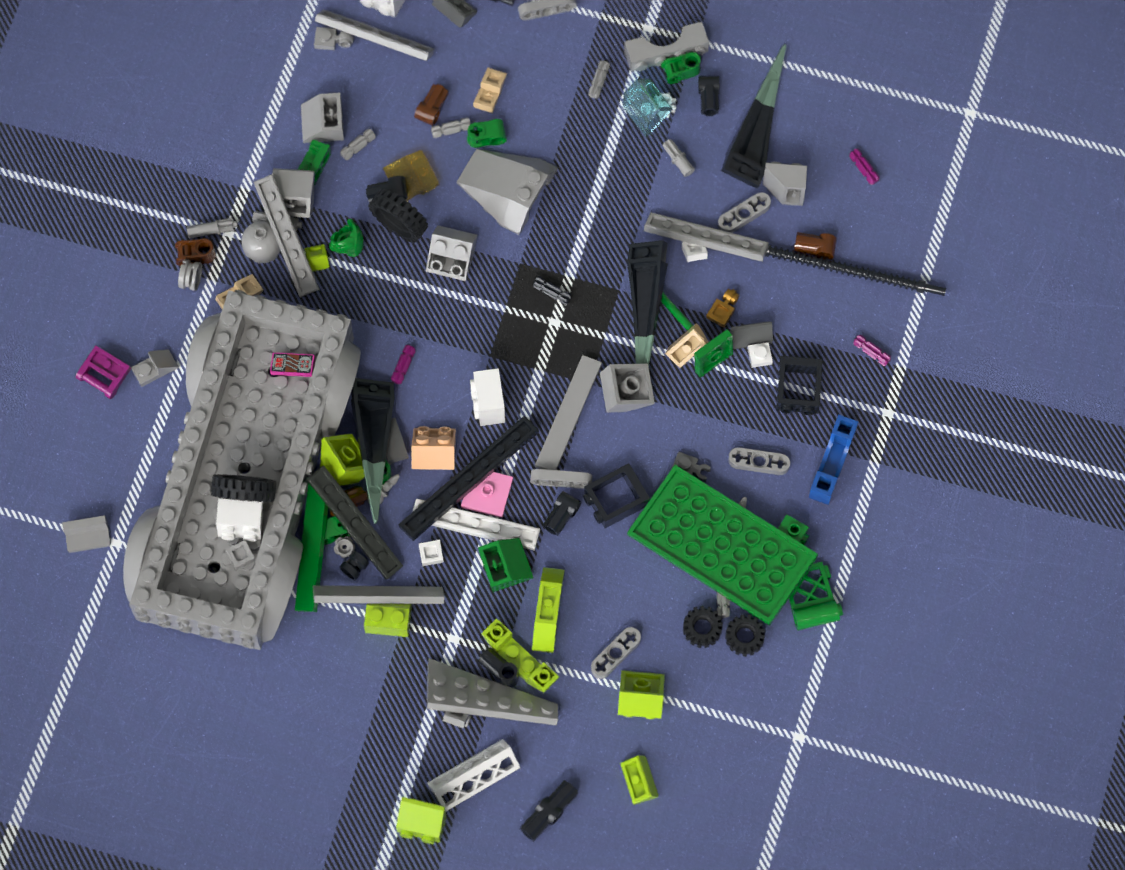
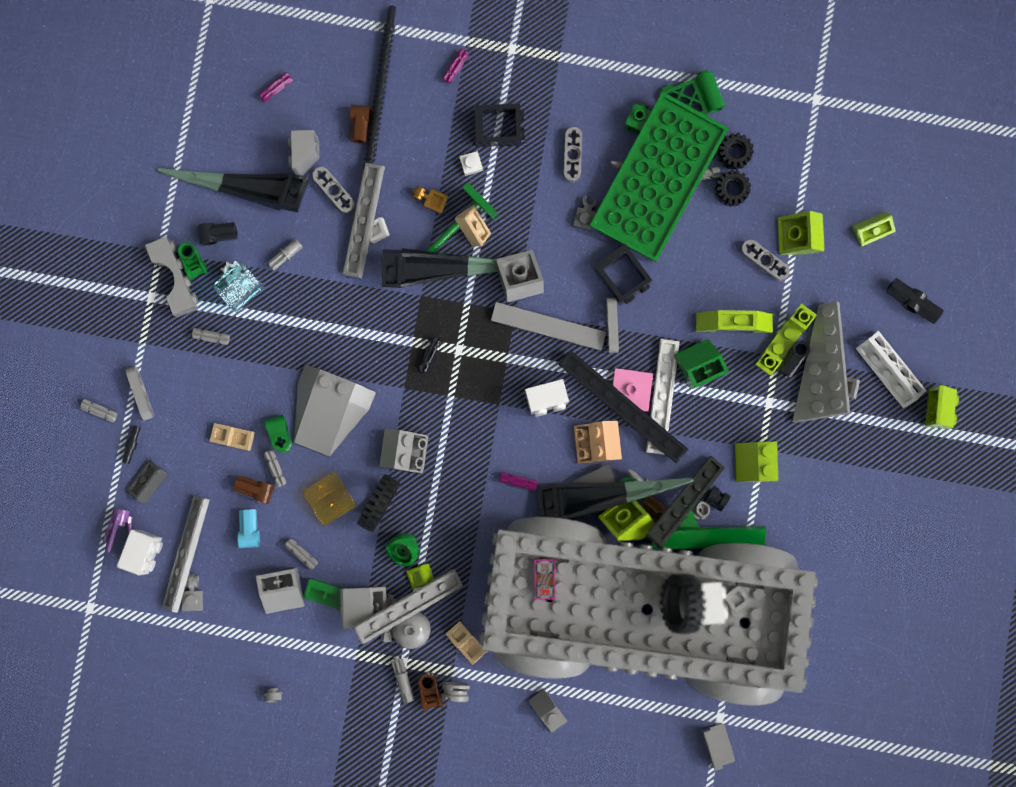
camera: 95 degrees left, 15 degrees up
(107, 366) = (554, 755): magenta plate -> none
(216, 103) = (273, 695): none -> light grey plate
(378, 594) = (745, 472): light grey tile -> none
(384, 95) = (248, 535): none -> medium azure piece
(396, 184) = (348, 514): black piece -> none
(431, 553) = (696, 432): white plate -> none
(564, 508) = (640, 319): black piece -> none
(751, 334) = (454, 171): dark grey slope -> none
(833, 459) = (582, 93): blue arch -> none

